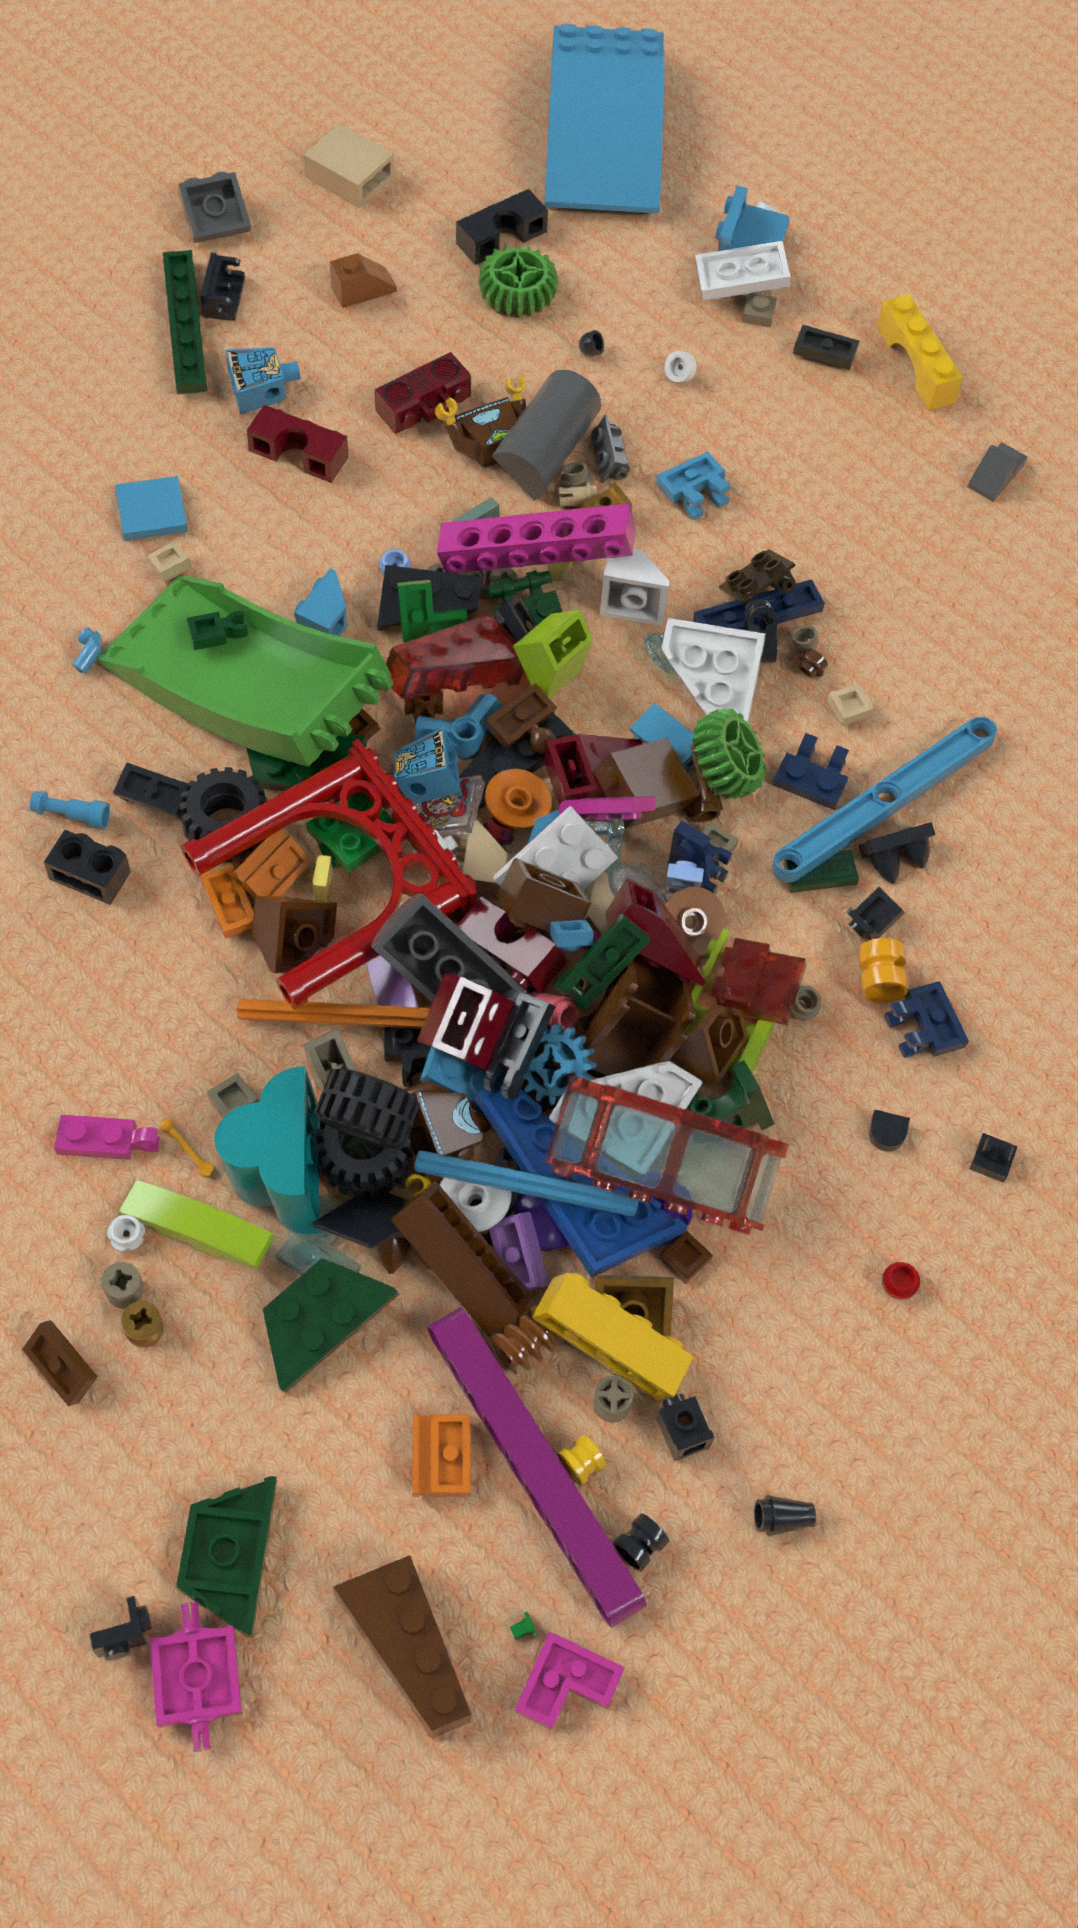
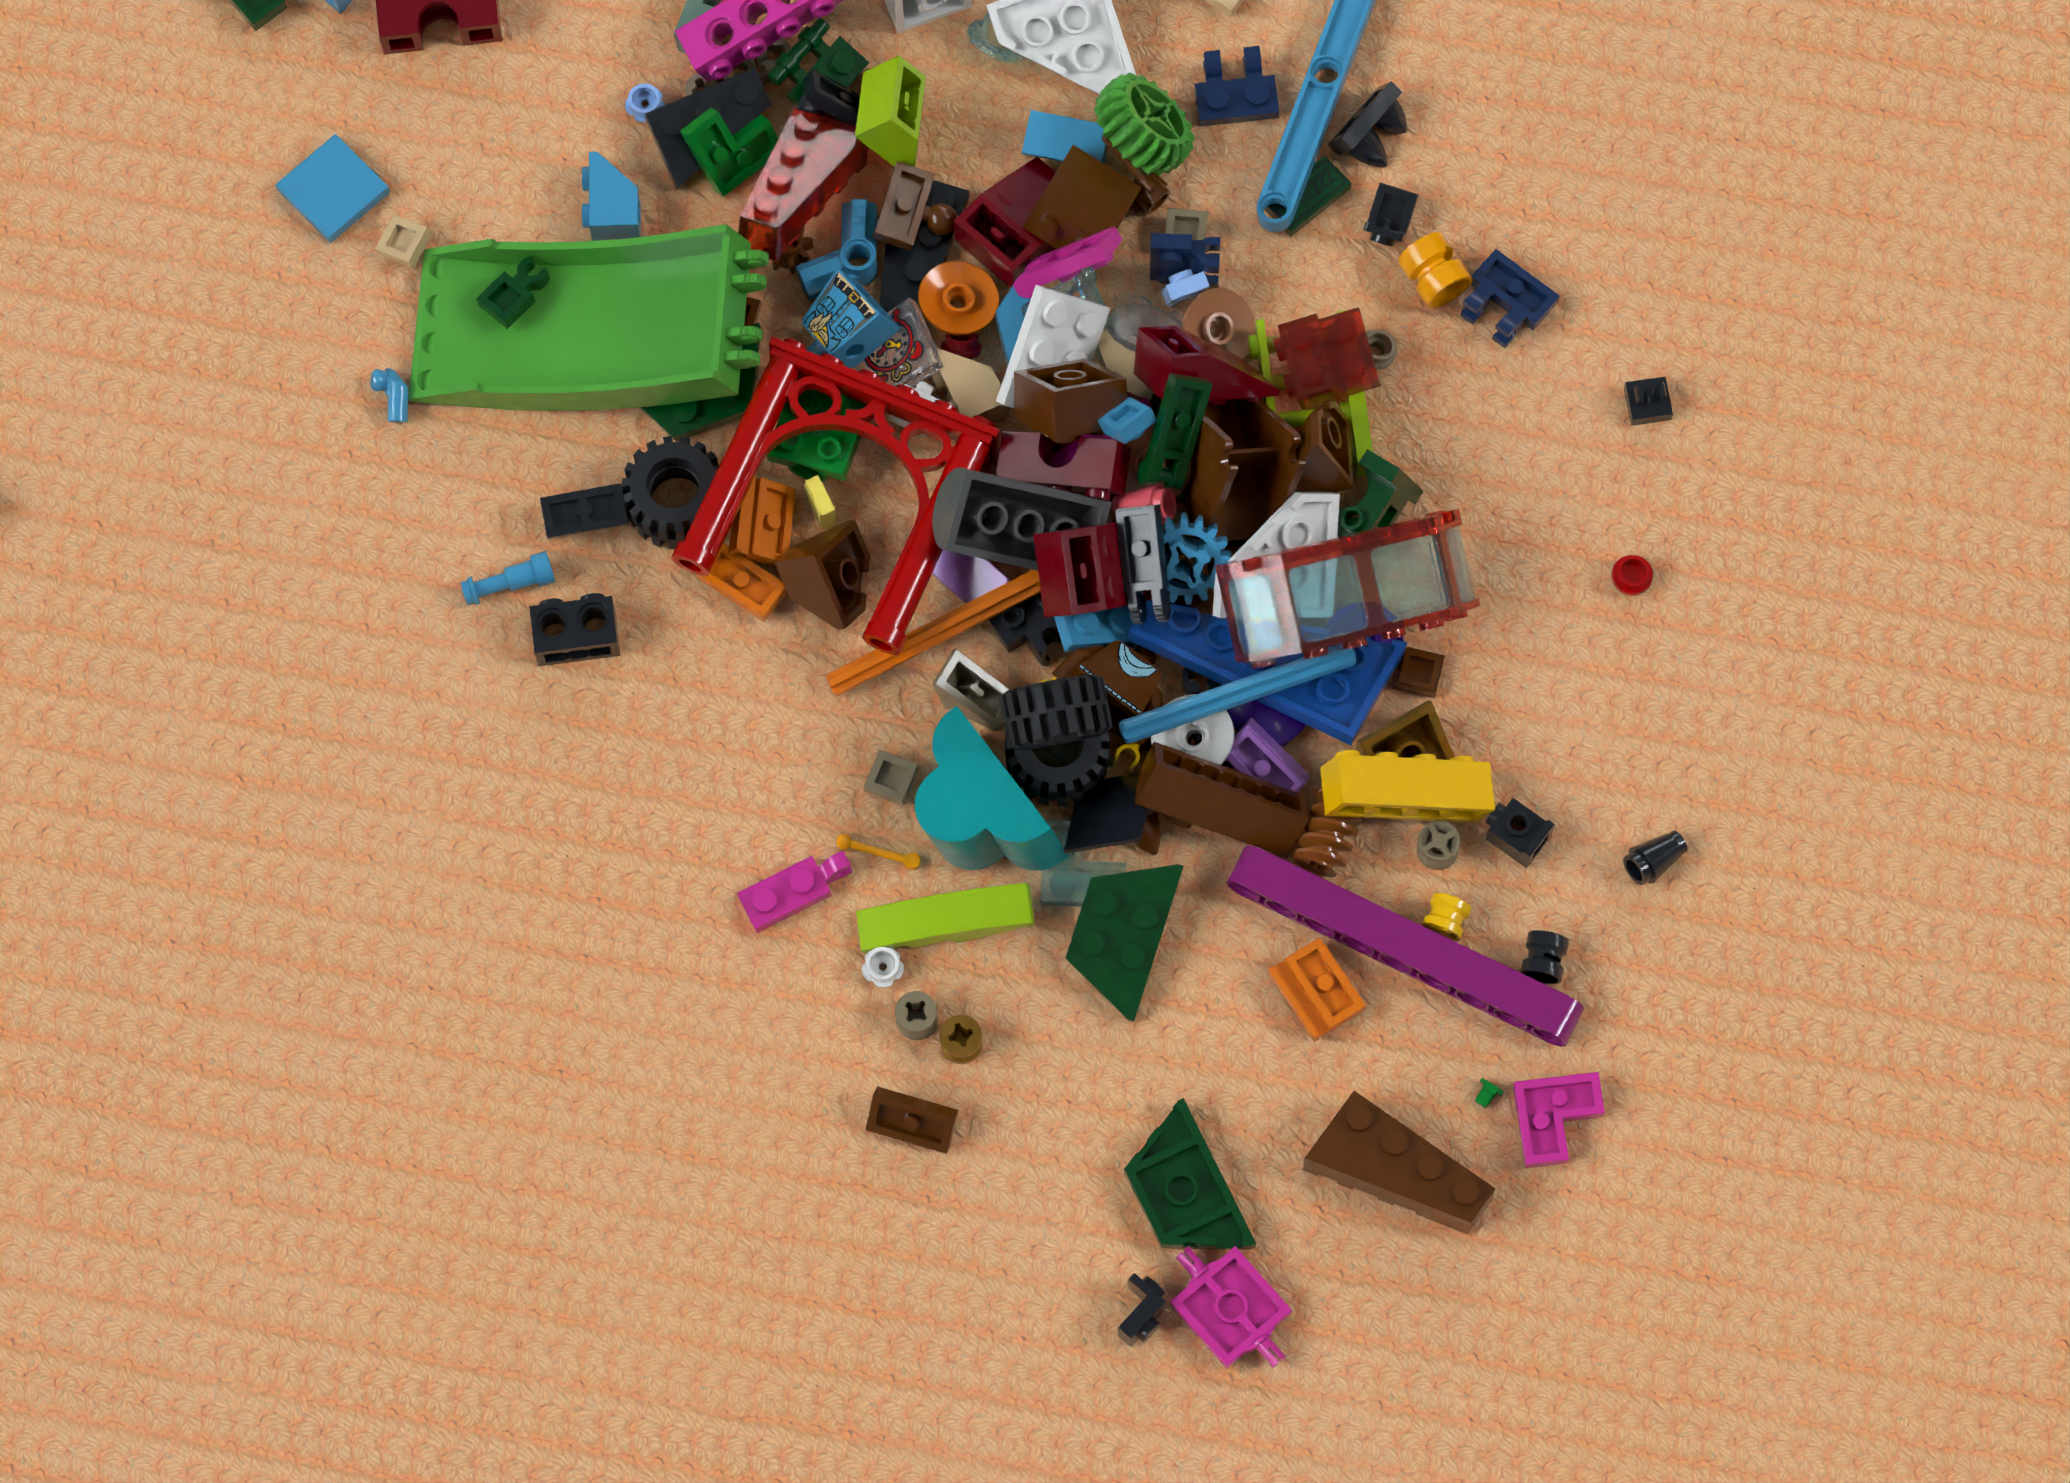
camera: 25 degrees left, 10 degrees up
(888, 1130) = (1533, 433): black tile -> none

